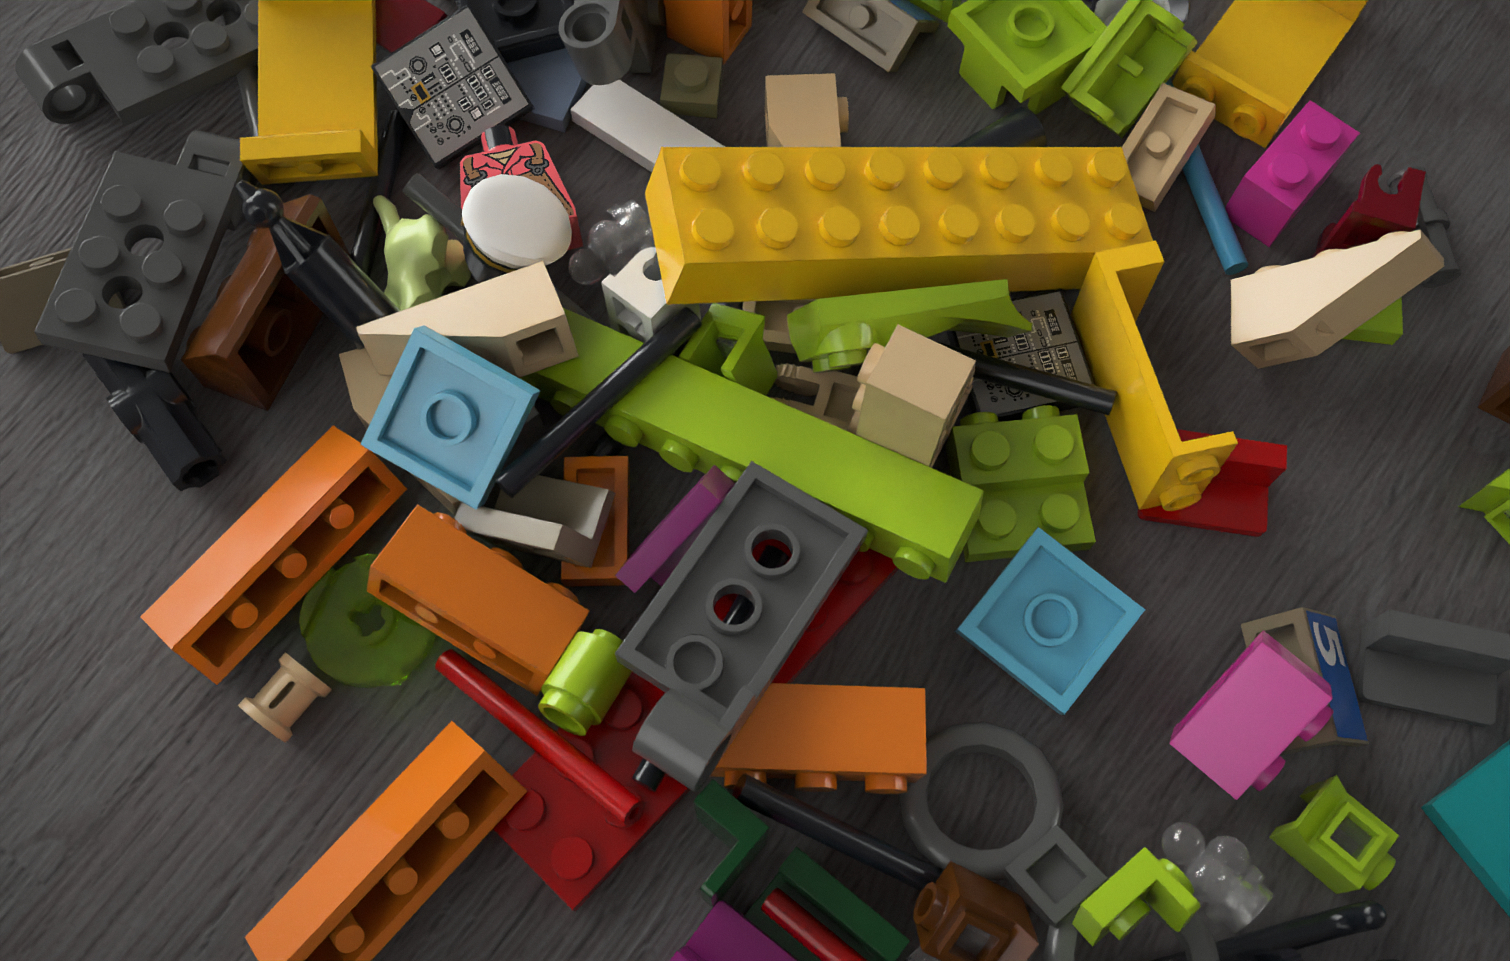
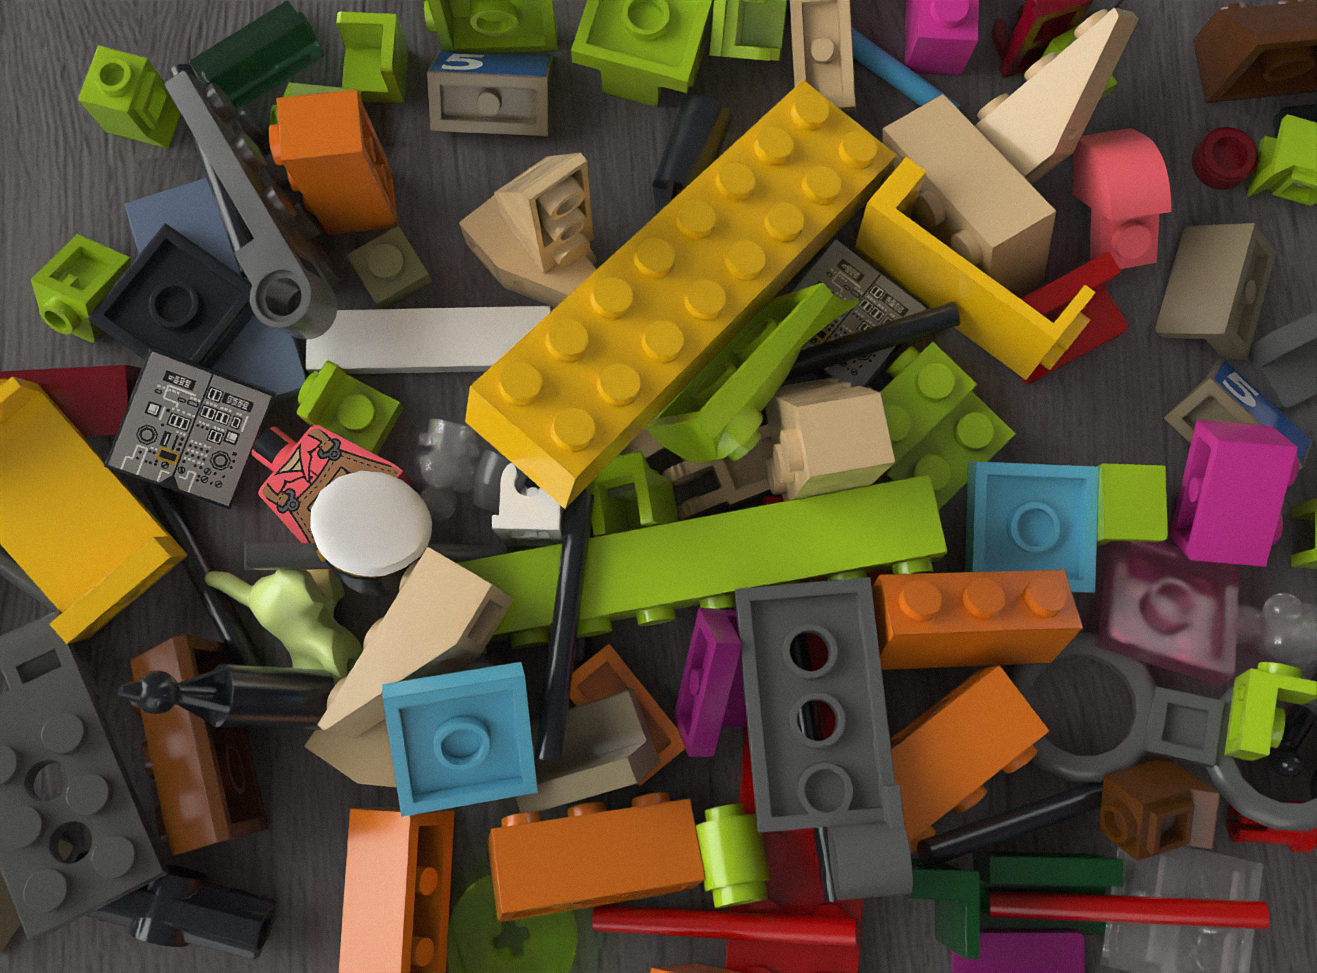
camera: 40 degrees left, 10 degrees up
(578, 154) = (347, 407): none -> lime bracket
(835, 86) = (550, 210): none -> tan slope
(932, 641) = (973, 618): none -> orange brick
(1121, 773) = (1170, 610): none -> clear pink plate
(1150, 659) = (1132, 503): none -> lime panel
(1199, 329) = (974, 196): none -> tan wedge
(1336, 417) = (1127, 190): none -> coral brick
(1375, 555) = (1217, 287): none -> dark tan panel
(1460, 458) = (1224, 158): none -> dark red tile

